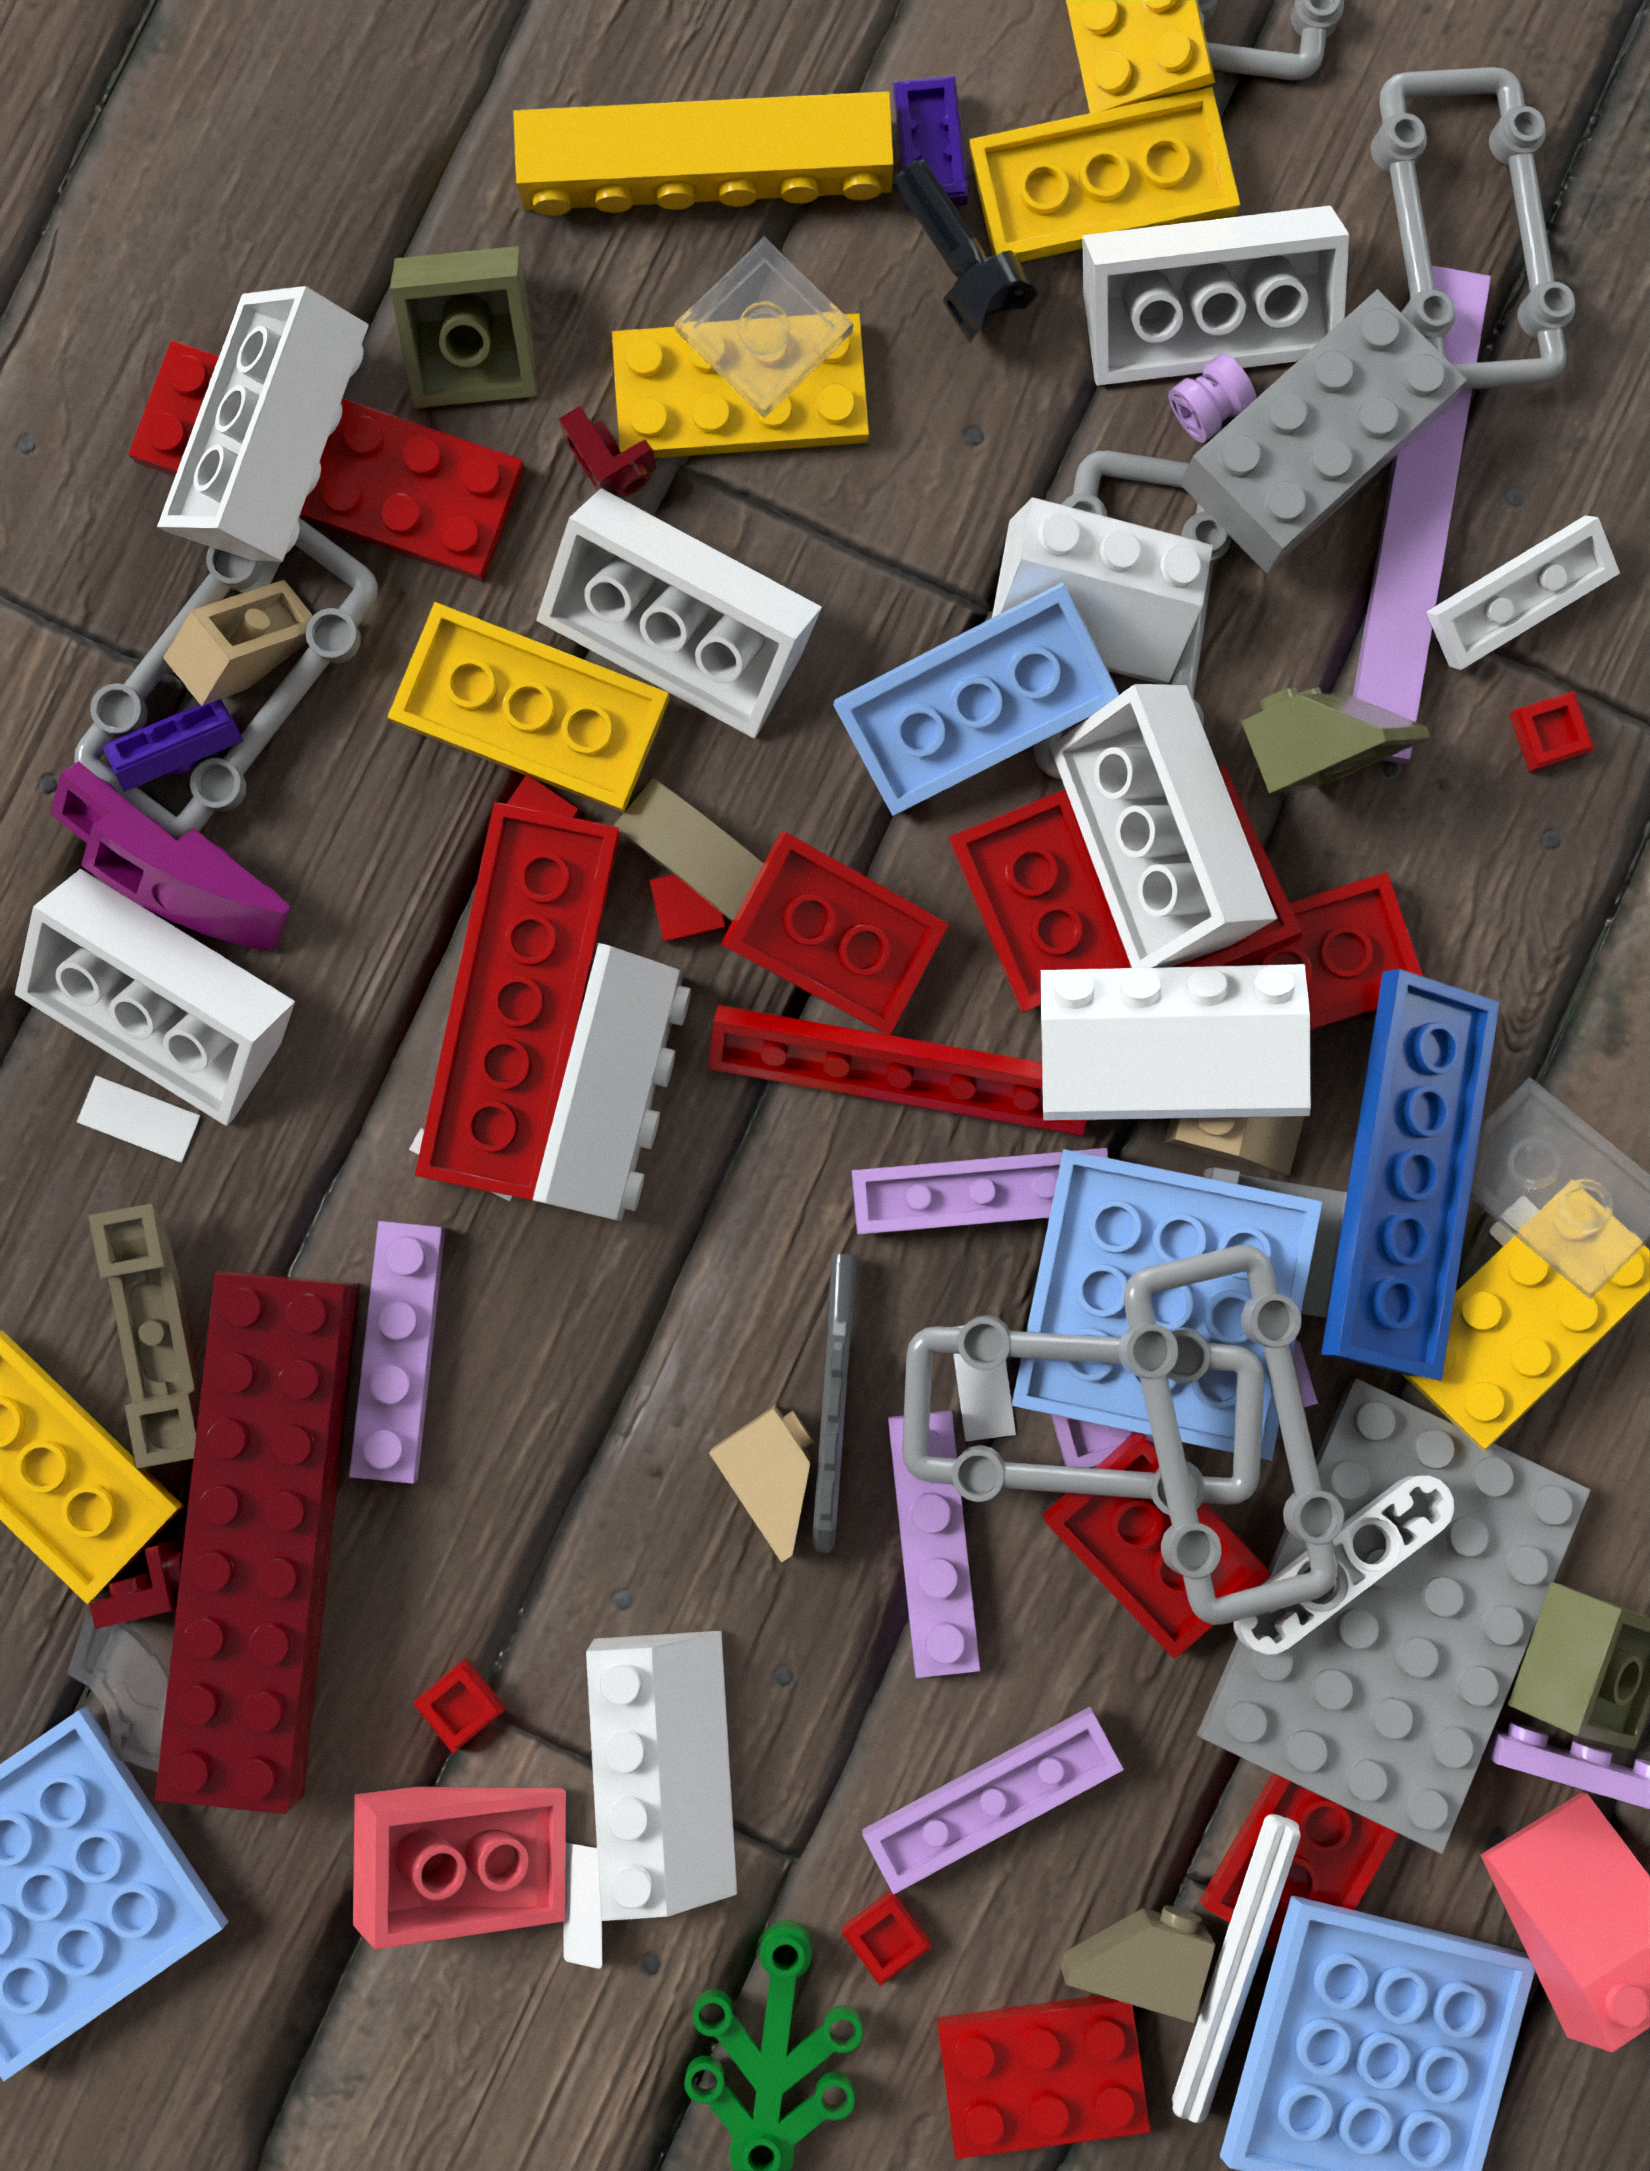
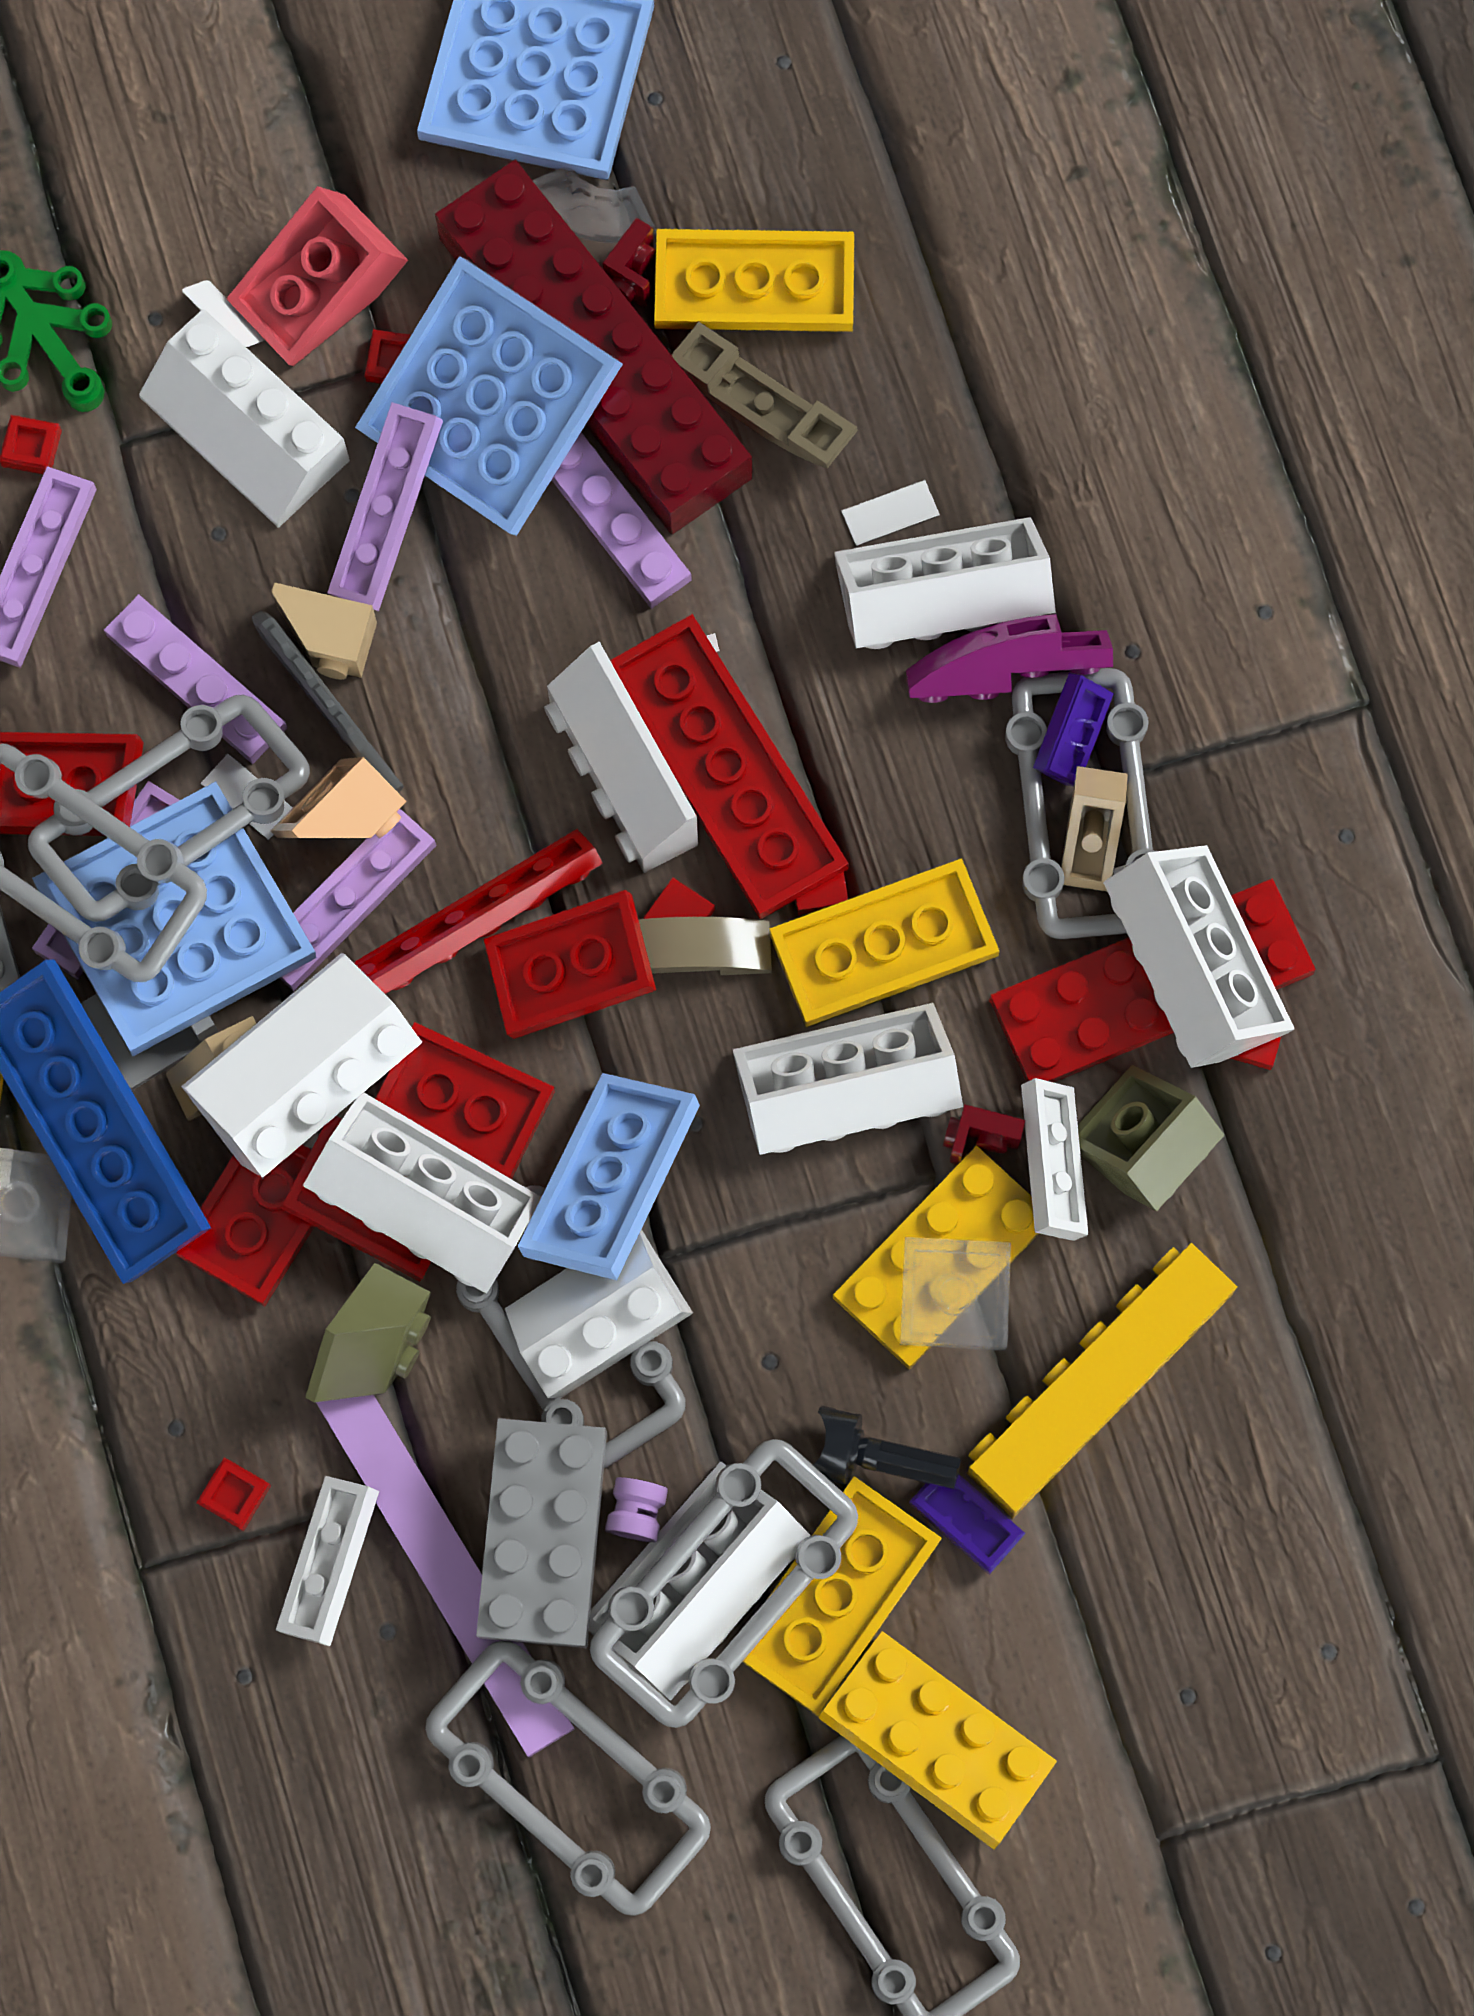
camera: 135 degrees right, 10 degrees down
(405, 1569) = (503, 383): none -> light blue plate
(565, 370) = (1054, 1159): none -> white plate
(605, 1548) = (385, 505): none -> lavender plate
(916, 1275) = (344, 804): none -> light nougat slope
(1282, 185) = (633, 1607): none -> light grey bar

